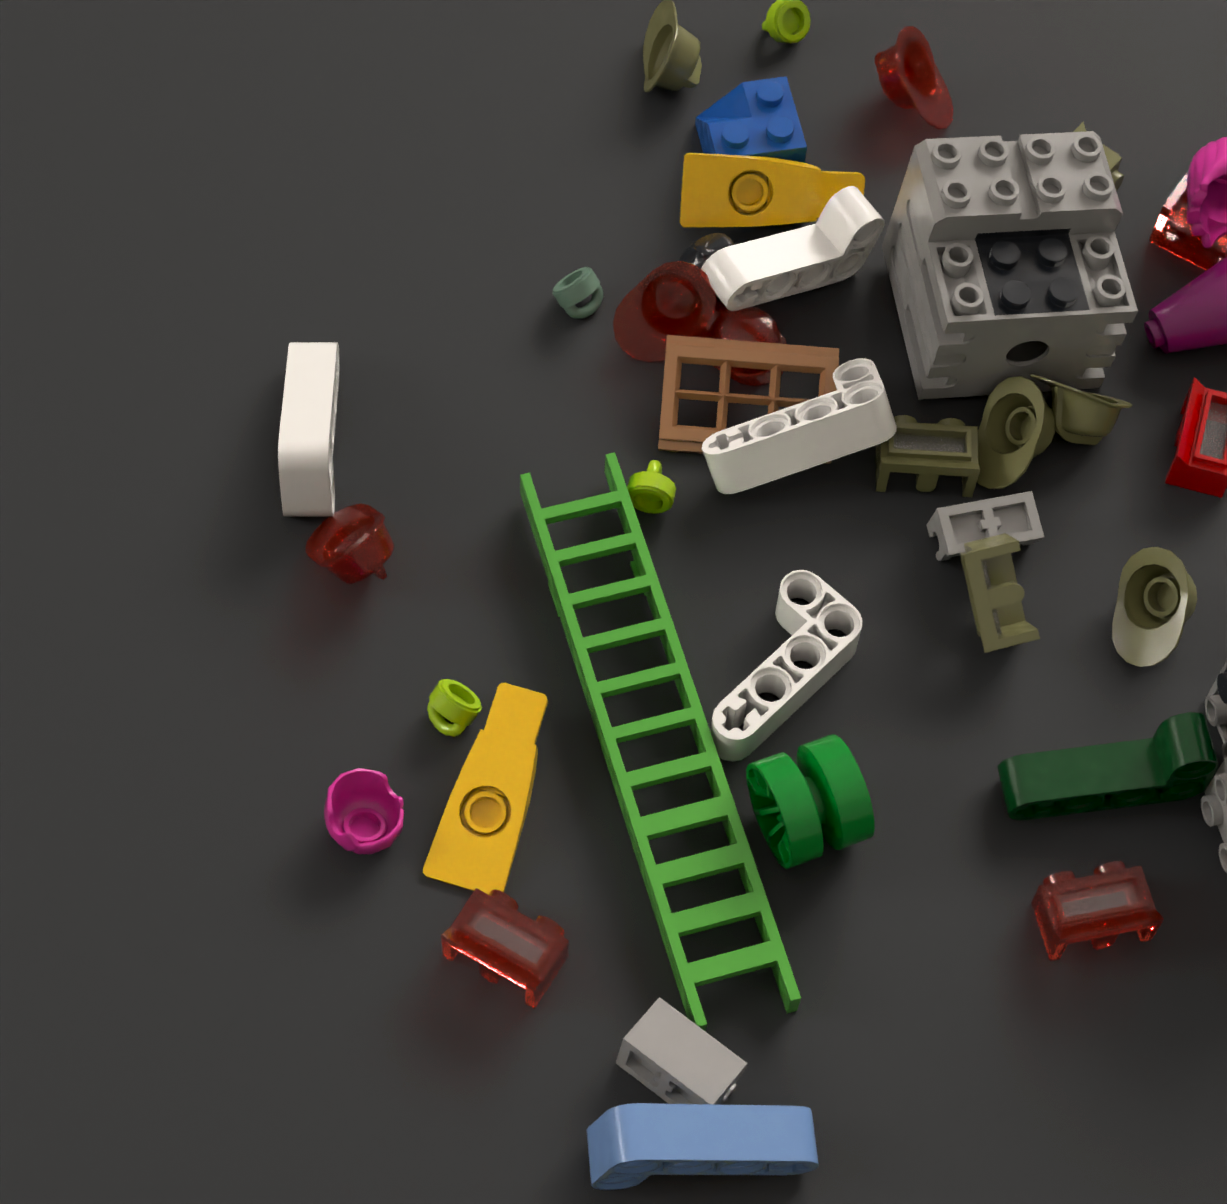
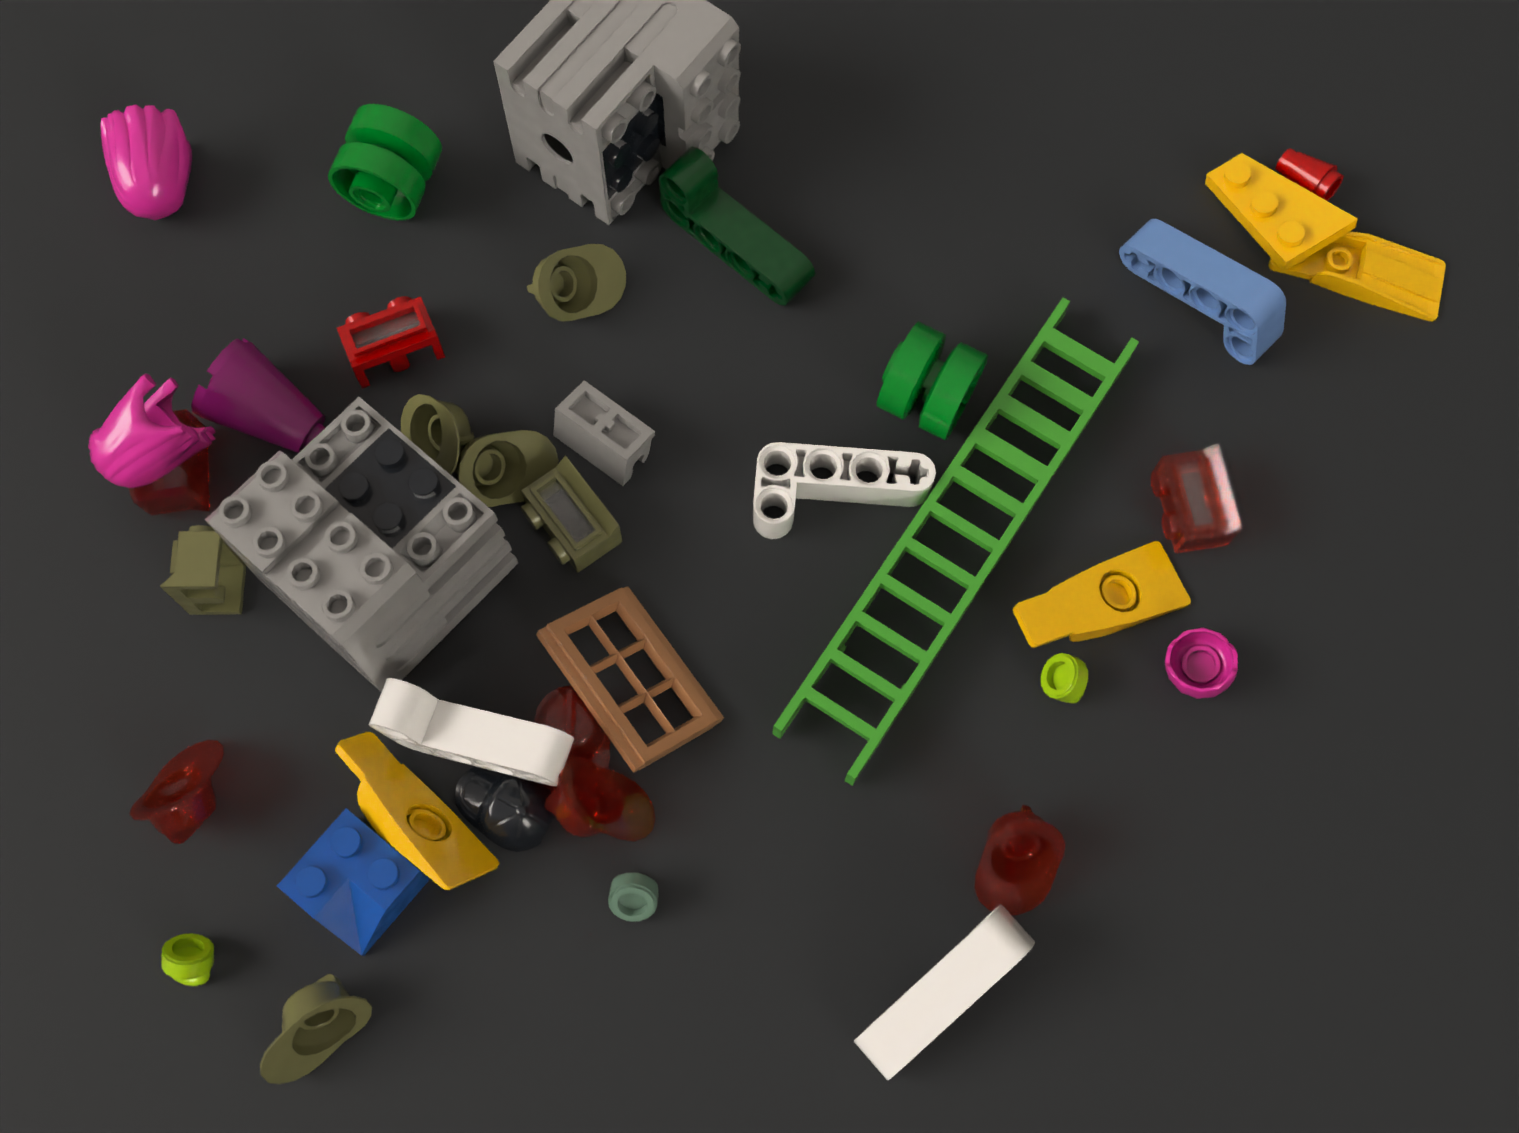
camera: 130 degrees left, 10 degrees up
(651, 490) = (772, 685): lime tile -> none
(679, 1058) = (1164, 340): light grey hinge -> none
(804, 433) = (636, 608): white beam -> none
(995, 592) = (654, 386): olive window -> none
(1094, 907) = (839, 179): clear red window -> none

